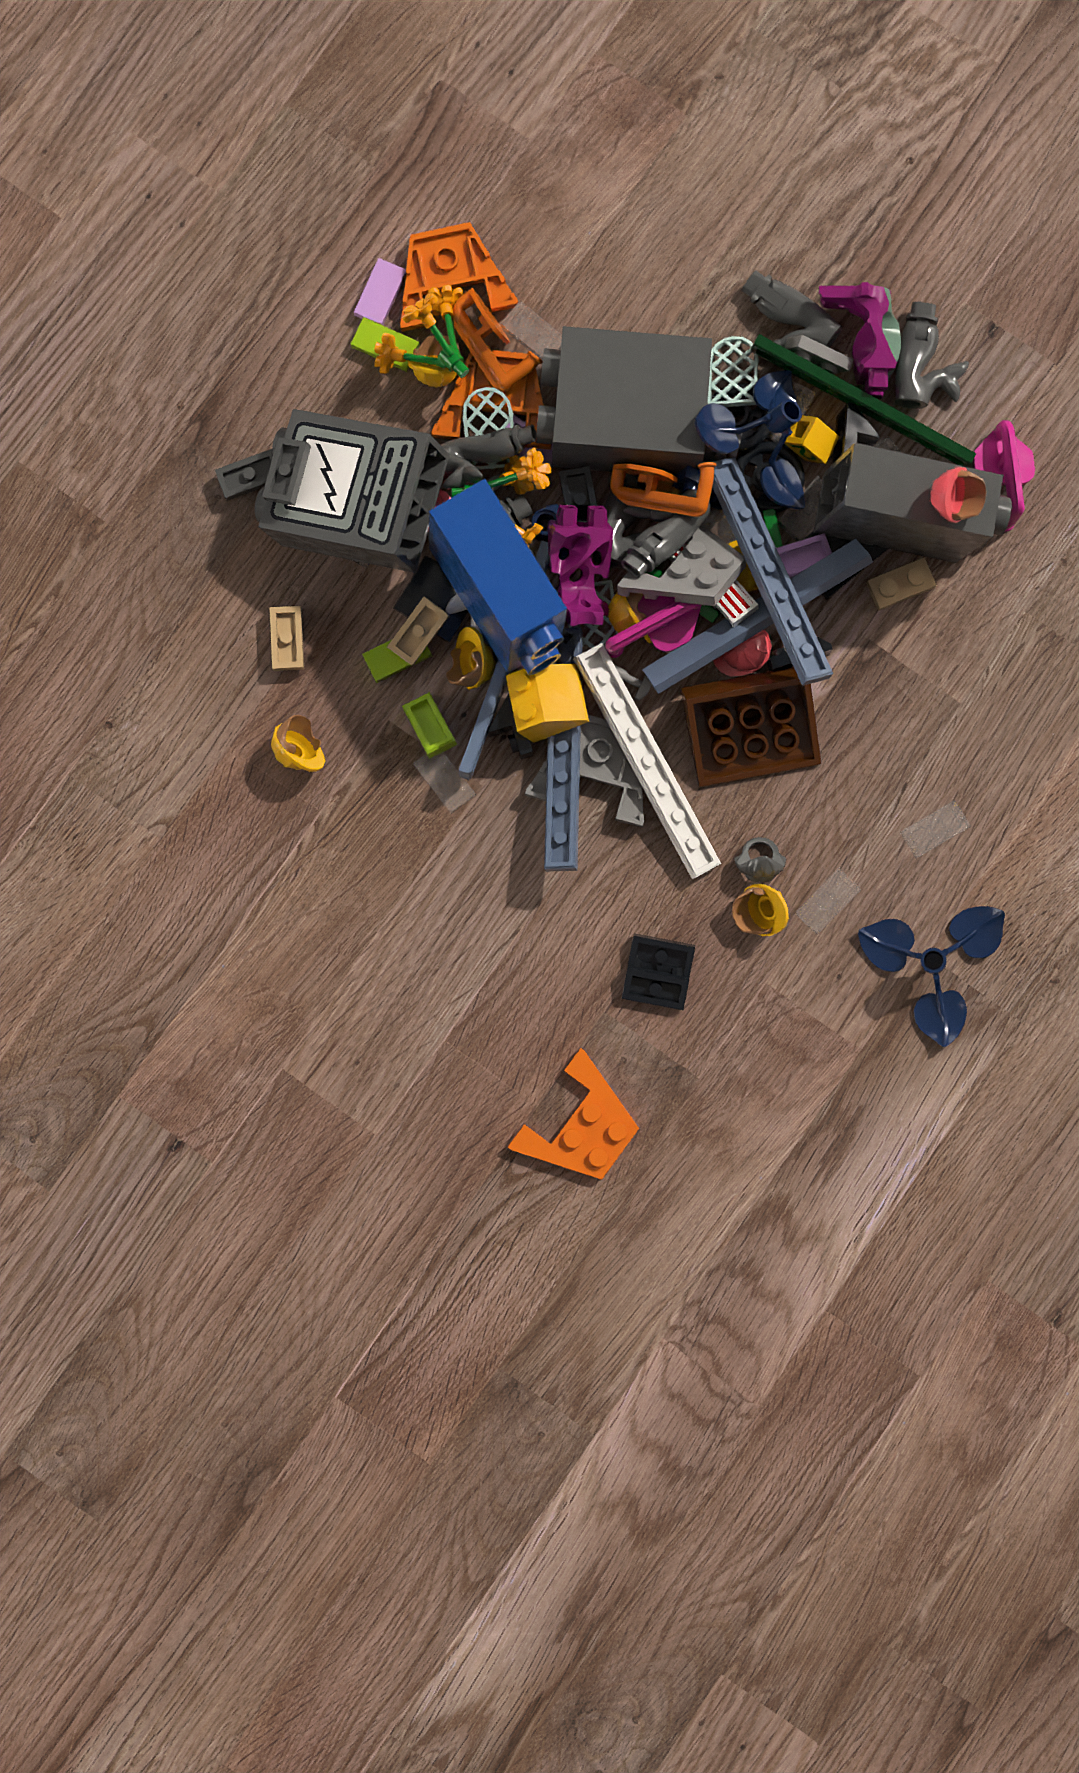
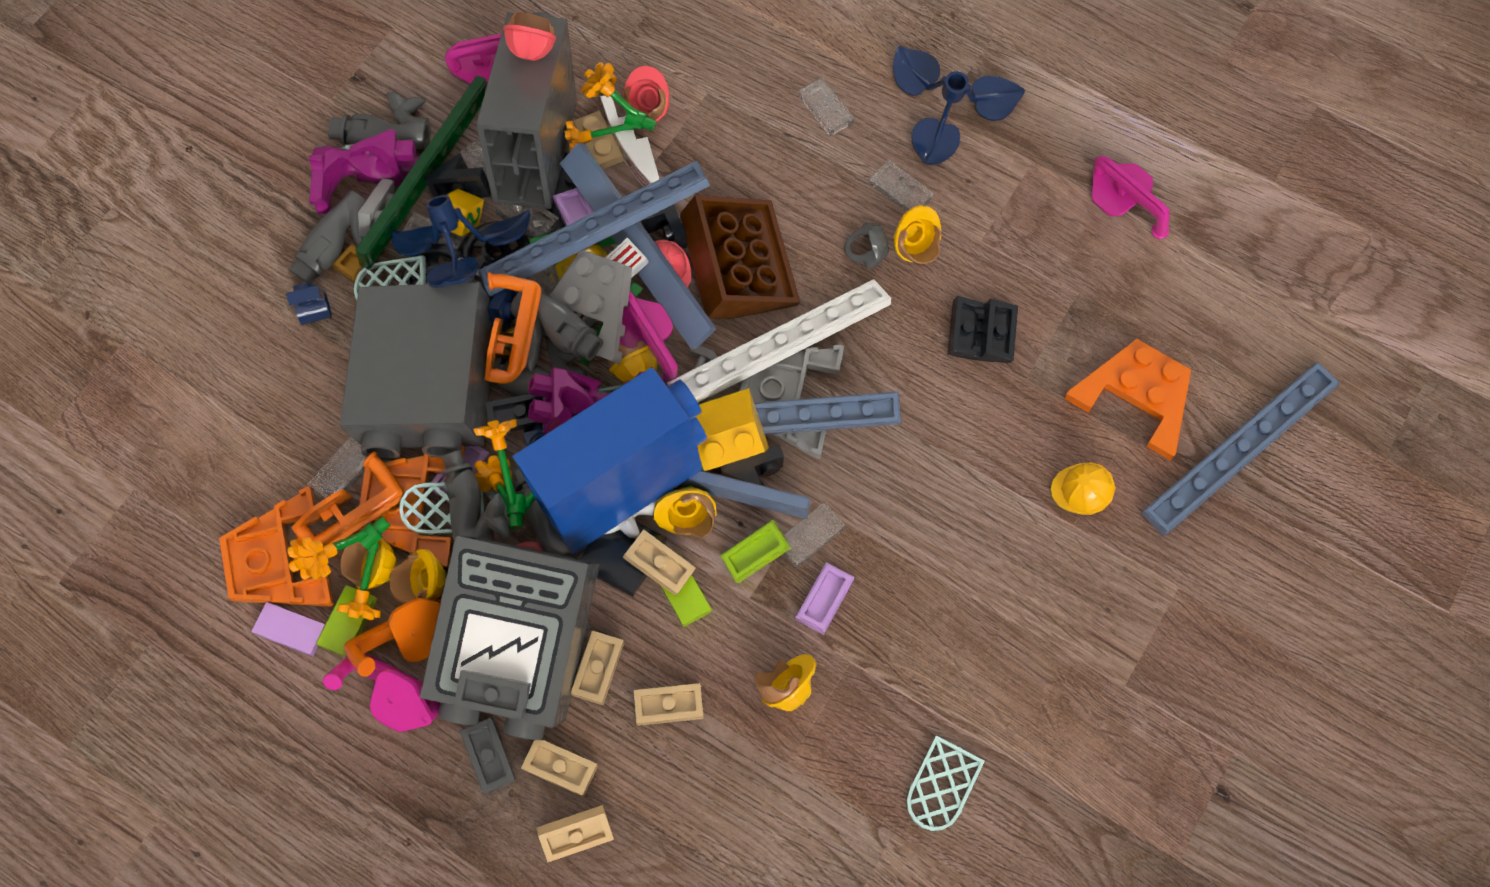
camera: 90 degrees left, 15 degrees down
(174, 551) = (575, 833): none -> tan plate
(229, 903) = (958, 751): none -> light aqua window
(234, 539) = (559, 767): none -> tan plate
(311, 388) = (394, 696): none -> dark pink piece
(325, 574) = (597, 668): none -> tan plate
(369, 400) = (410, 626): none -> orange piece
(382, 790) = (824, 598): none -> lavender tile
(416, 406) = (418, 577): none -> piece
(478, 1051) = (1083, 488): none -> yellow piece
(516, 1220) = (1240, 449): none -> sand blue tile
(713, 292) = (309, 303): none -> dark blue plate
(765, 327) = (348, 264): none -> pearl gold tile
(818, 1137) = (1122, 187): none -> dark pink piece
(877, 623) = (635, 152): none -> white slope
(934, 575) = (602, 82): none -> plant
(944, 632) = (647, 92): none -> coral piece

